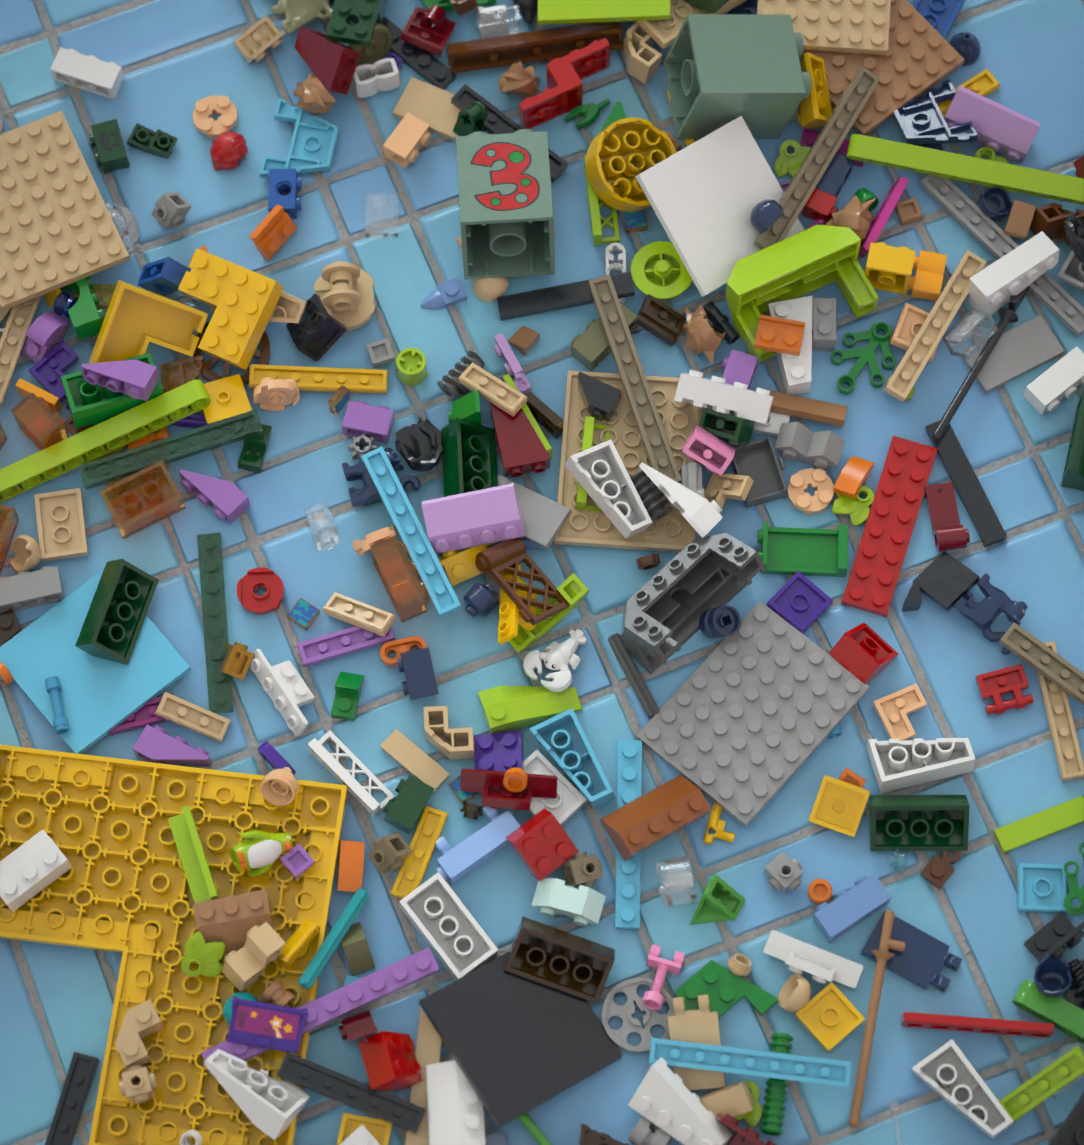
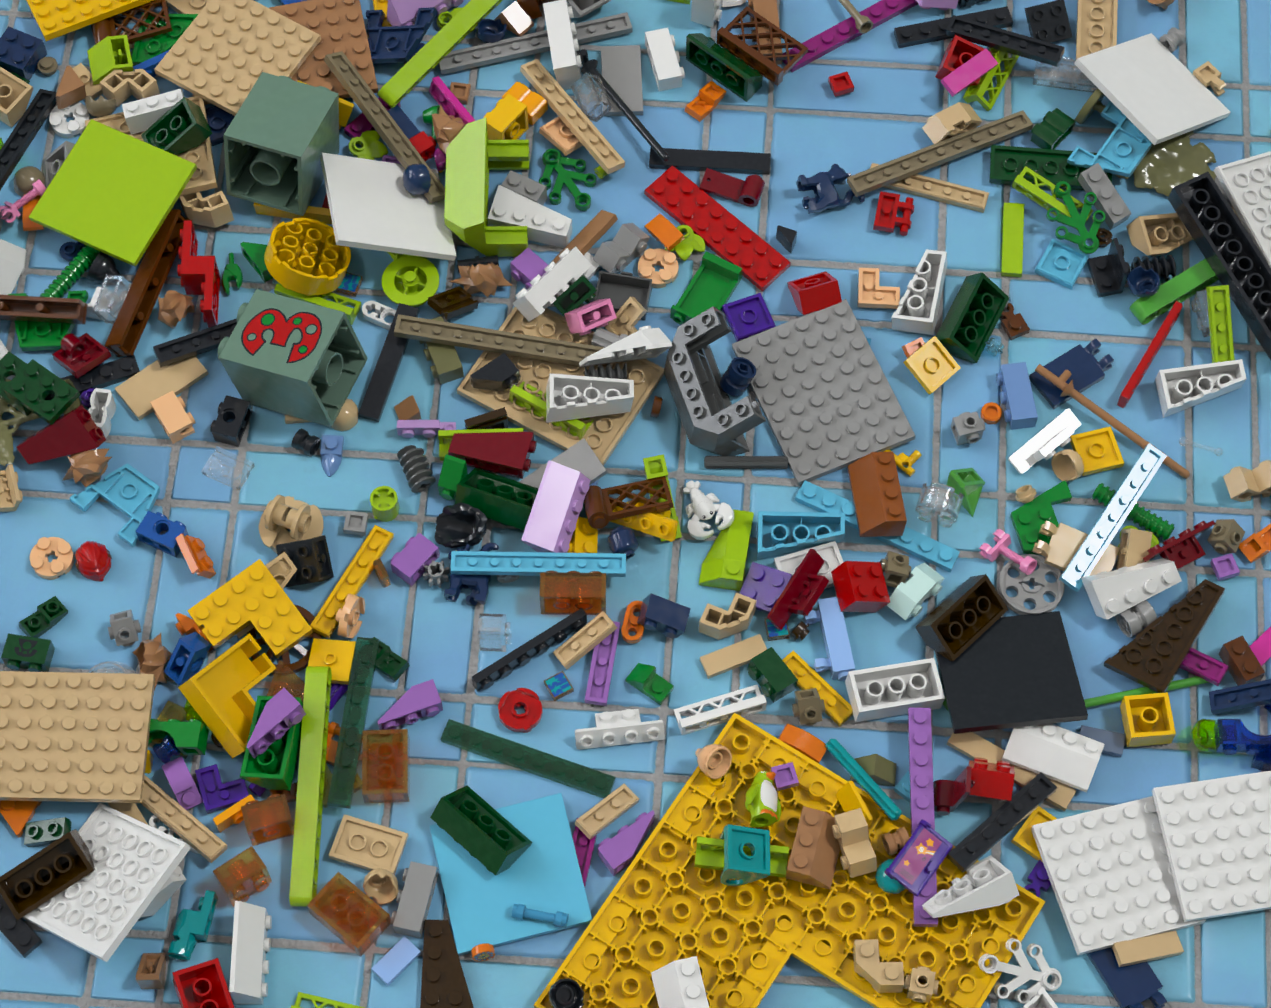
camera: 65 degrees left, 5 degrees down
(150, 250) = (152, 658): none -> medium nougat hair
(190, 838) = (737, 863): none -> teal hose
(205, 954) = (832, 886): lime plate -> none
(237, 660) = (576, 751): pearl gold bracket -> none
(273, 757) = (678, 762): dark purple beam -> none
(331, 573) = (524, 653): none -> black plate
(363, 546) = (528, 598): light nougat plate -> none
(423, 201) = (231, 432): none -> black brick
(441, 266) = (305, 442): none -> black wheel
(471, 119) = (192, 357): dark green piece -> none
(493, 389) = (448, 444): tan tile -> none
(515, 779) = (799, 579): orange tile -> none
(779, 335) = (522, 220): orange plate -> none
(946, 580) = (785, 209): black tile -> none
(1035, 446) = (706, 101): none -> orange slope

